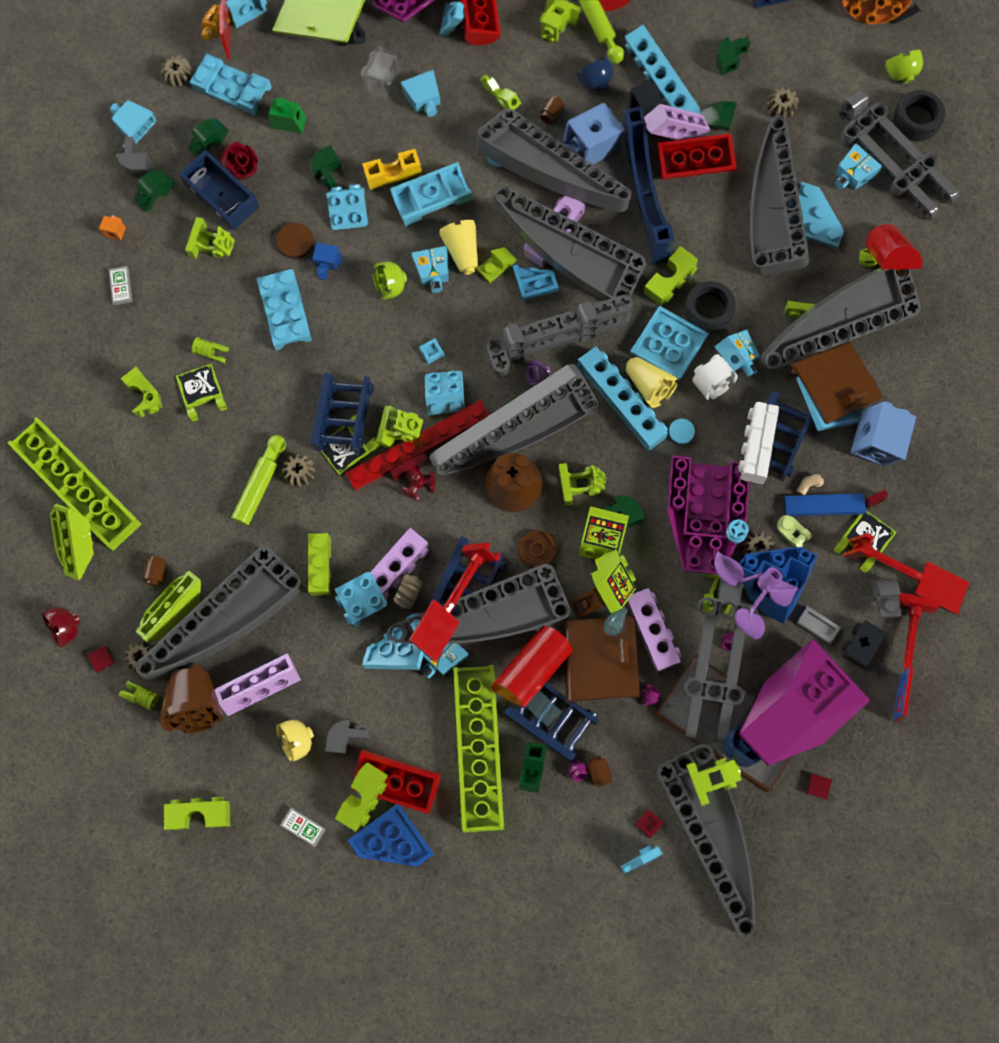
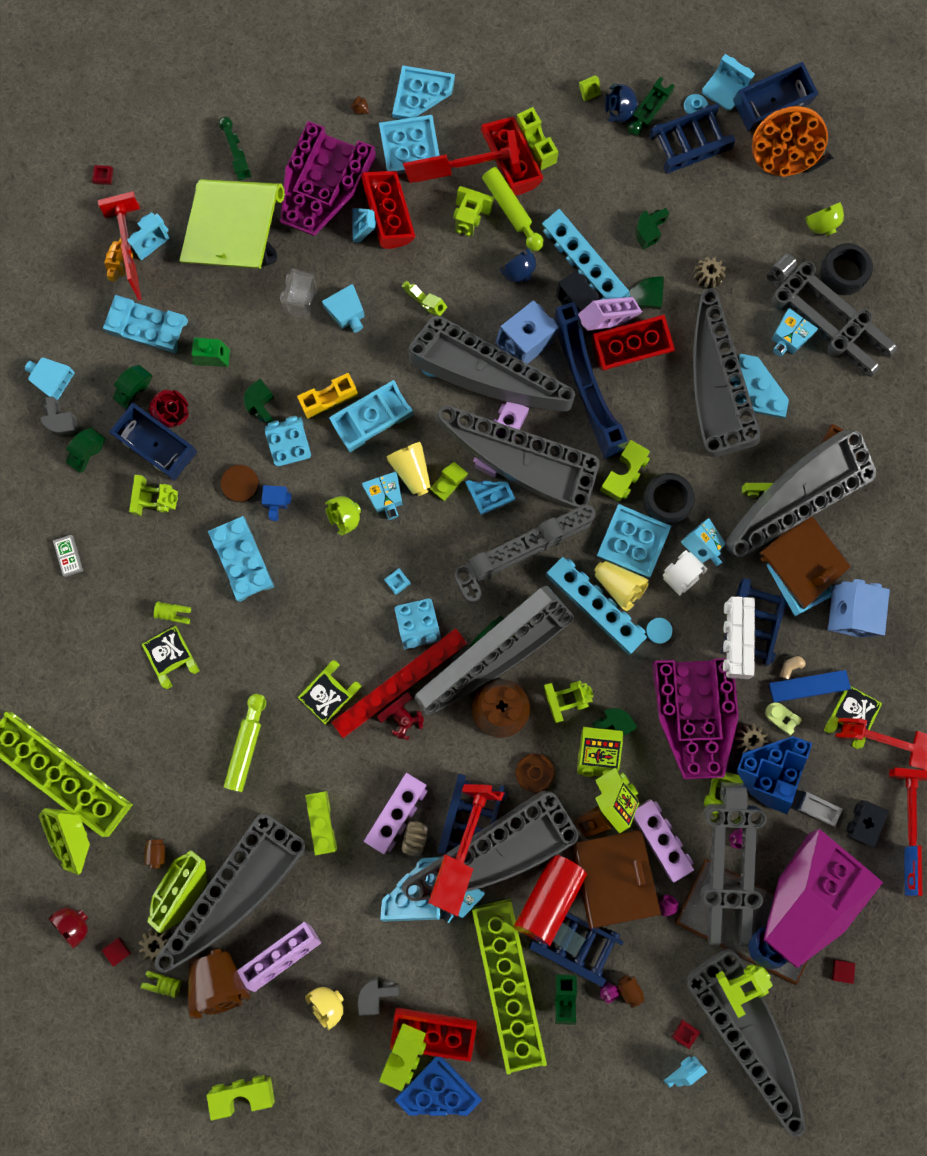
camera: 15 degrees left, 5 degrees up
(112, 227) = (49, 495): orange plate -> none
(136, 381) = (105, 658): lime tile -> none
(176, 71) = (82, 323): dark tan gear -> none
(303, 474) = (288, 731): dark tan gear -> none
(303, 827) = (348, 1092): tile -> none
(327, 403) = (300, 671): dark blue fence -> none
(360, 598) = (368, 853): medium azure bracket -> none
(403, 427) = (379, 668): lime tile -> none
(536, 372) = (507, 590): medium lavender brick -> none
(552, 110) = (479, 309): reddish brown brick -> none
(614, 623) = (625, 841): clear light blue cone -> none
(740, 527) = (734, 729): medium azure wheel -> none
(770, 581) = (775, 785): medium lavender plant -> none
(865, 255) = (817, 424): lime tile -> none
(876, 499) = (859, 674): dark red tile -> none
(886, 594) = (884, 772): dark grey brick -> none
(892, 248) = (842, 417): red brick -> none

